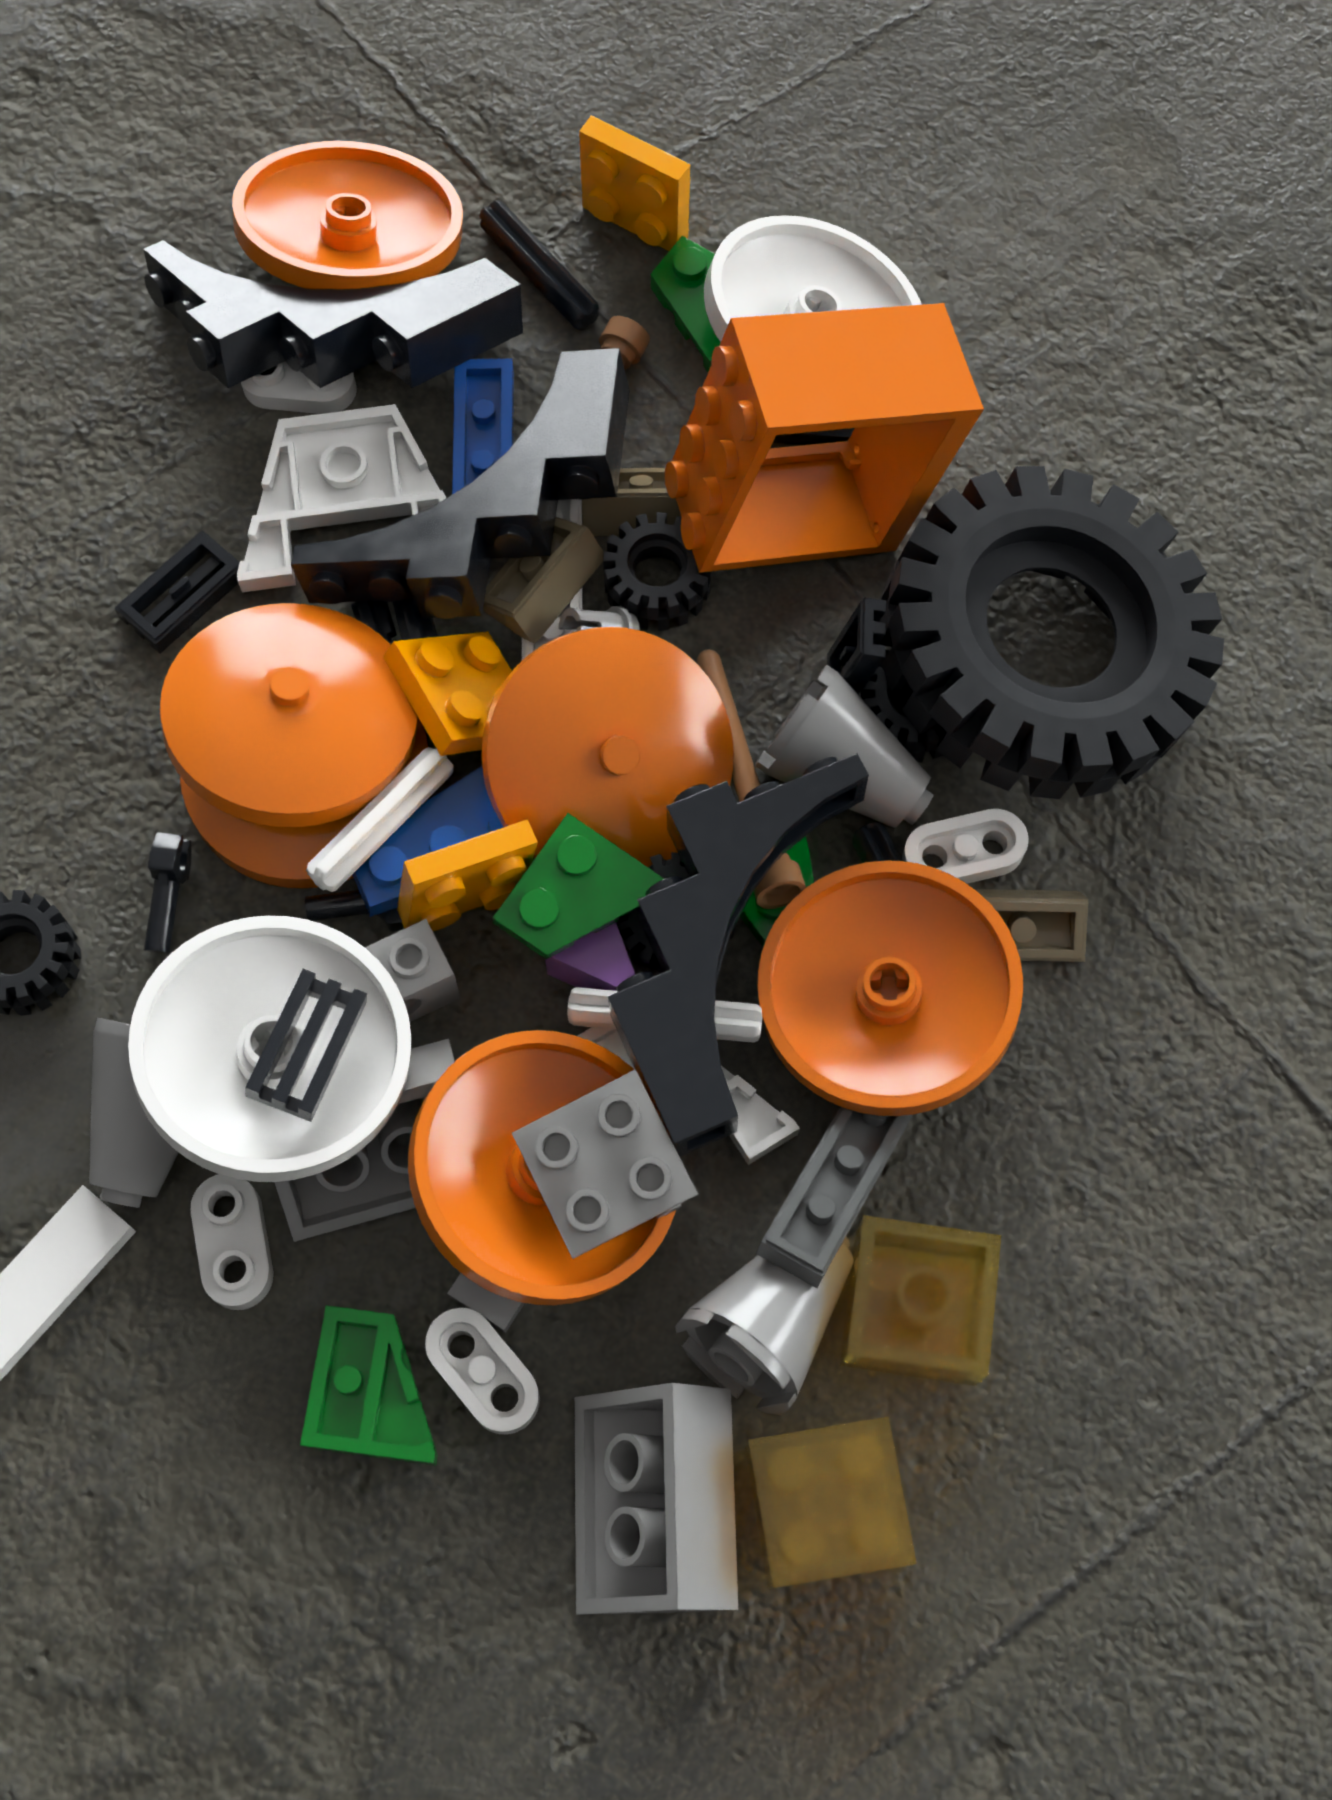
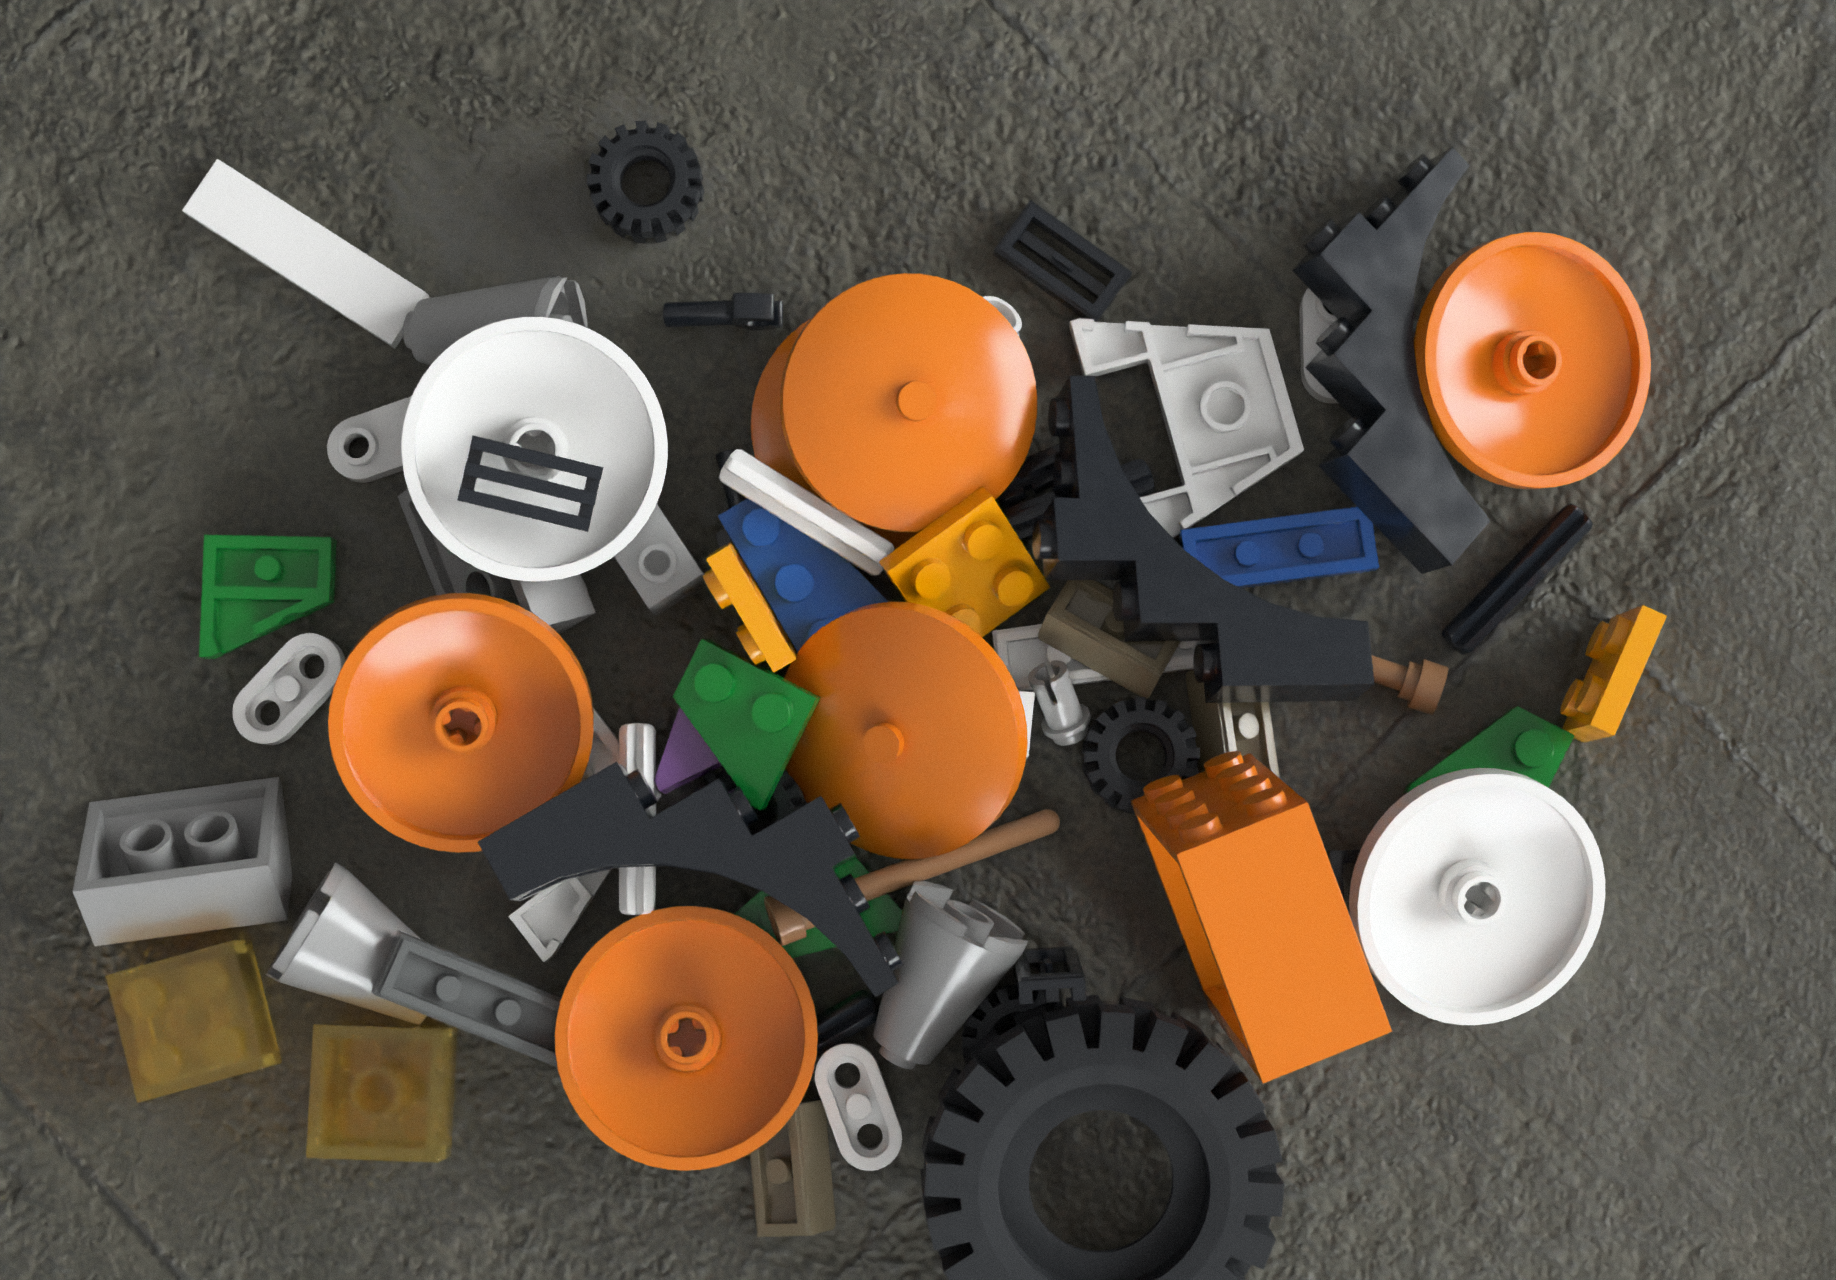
camera: 85 degrees right, 15 degrees up
(604, 1164) = (459, 778): light grey hinge -> none

